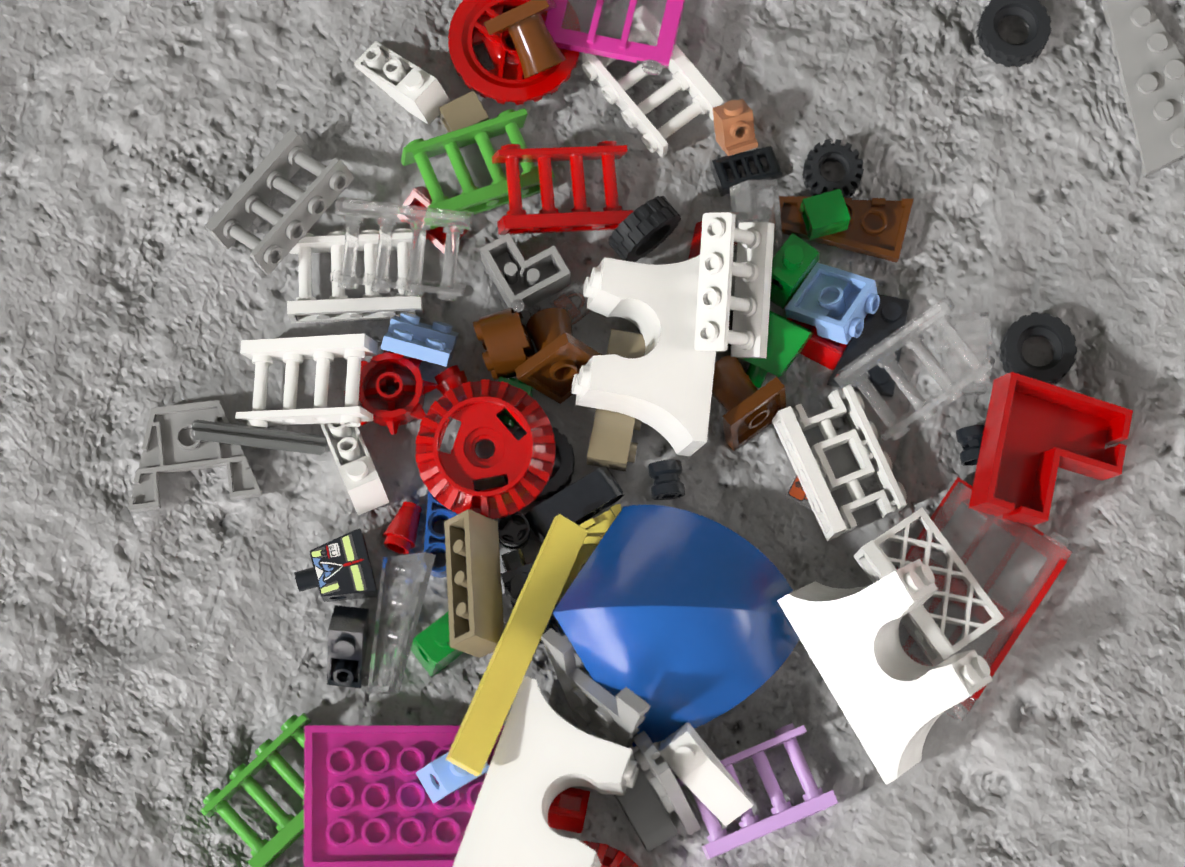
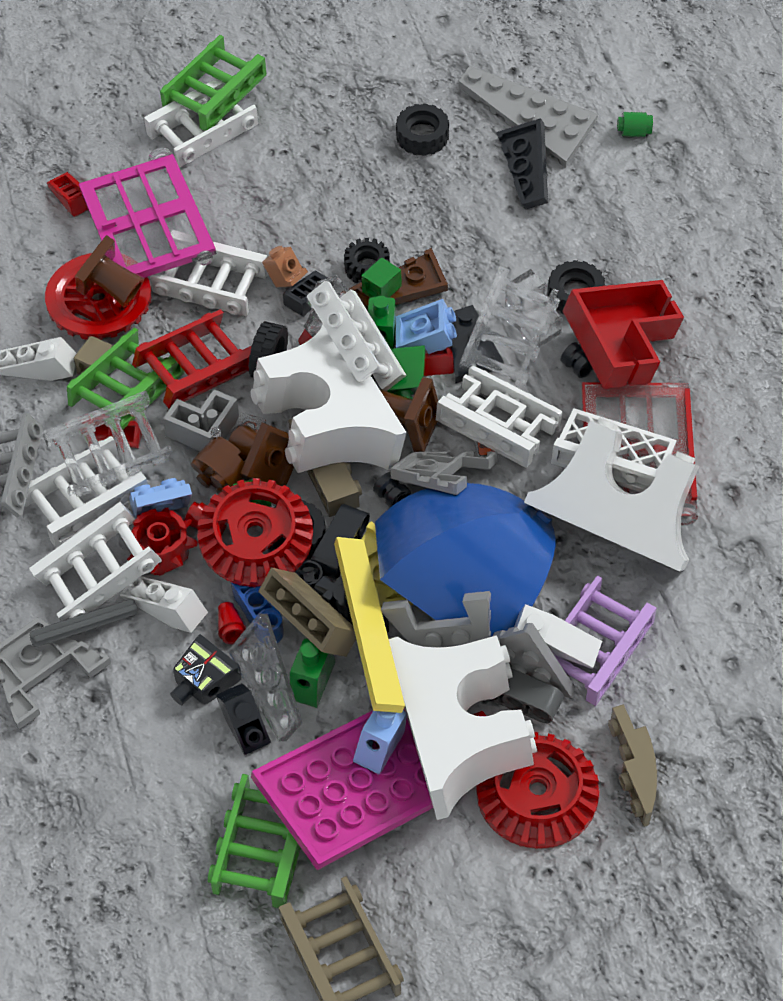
camera: 30 degrees left, 20 degrees down
(720, 481) = (436, 469): none -> light grey wing
(1105, 140) = (526, 160): none -> black wing

